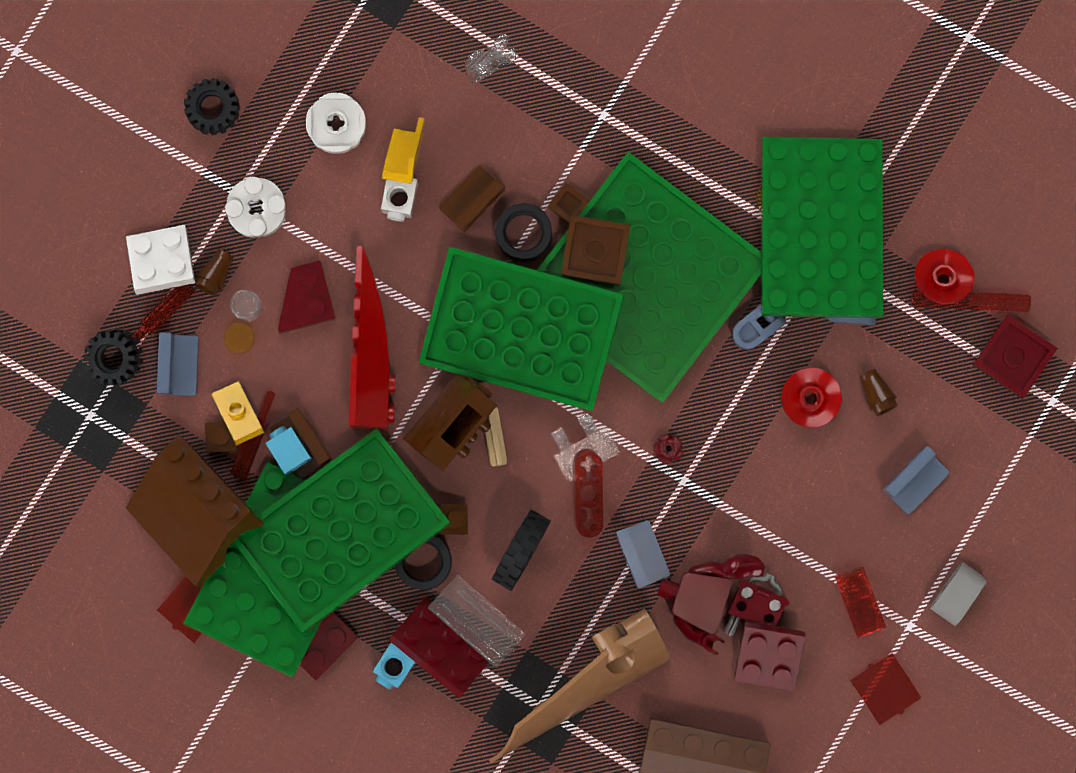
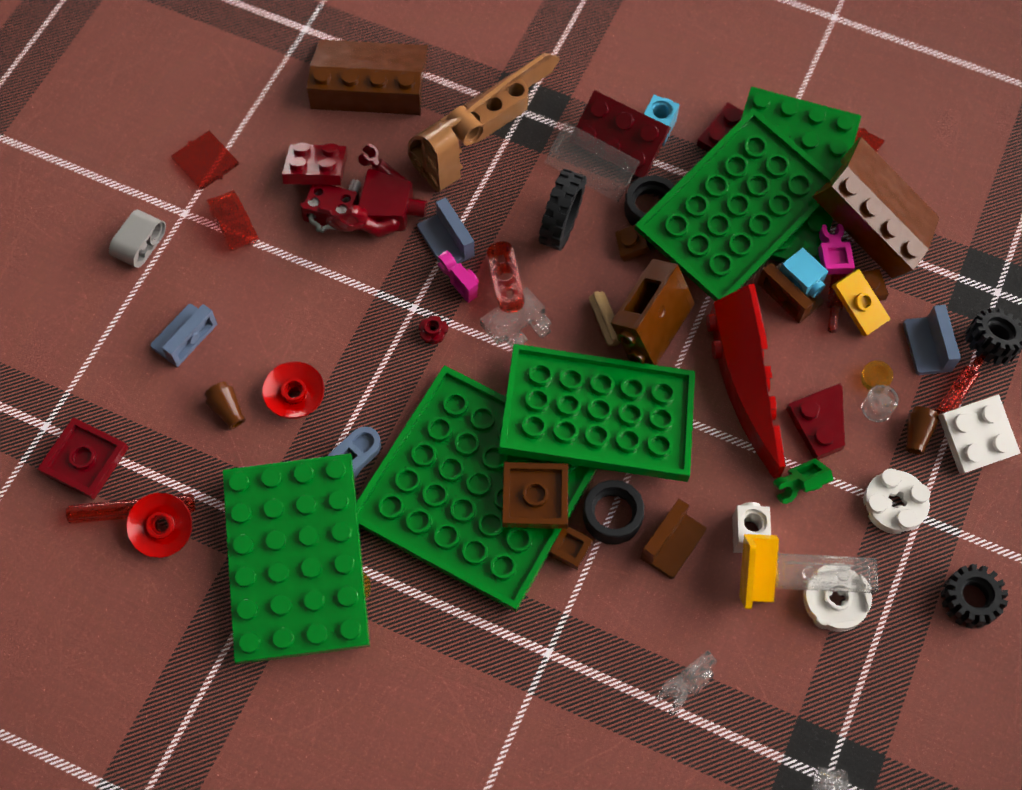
camera: 170 degrees right, 20 degrees down
(251, 464) = (835, 254): none -> dark pink plate
(335, 240) = (807, 476): none -> green plate
(342, 141) = (827, 573): none -> clear tile
(630, 496) = (463, 280): none -> dark pink plate

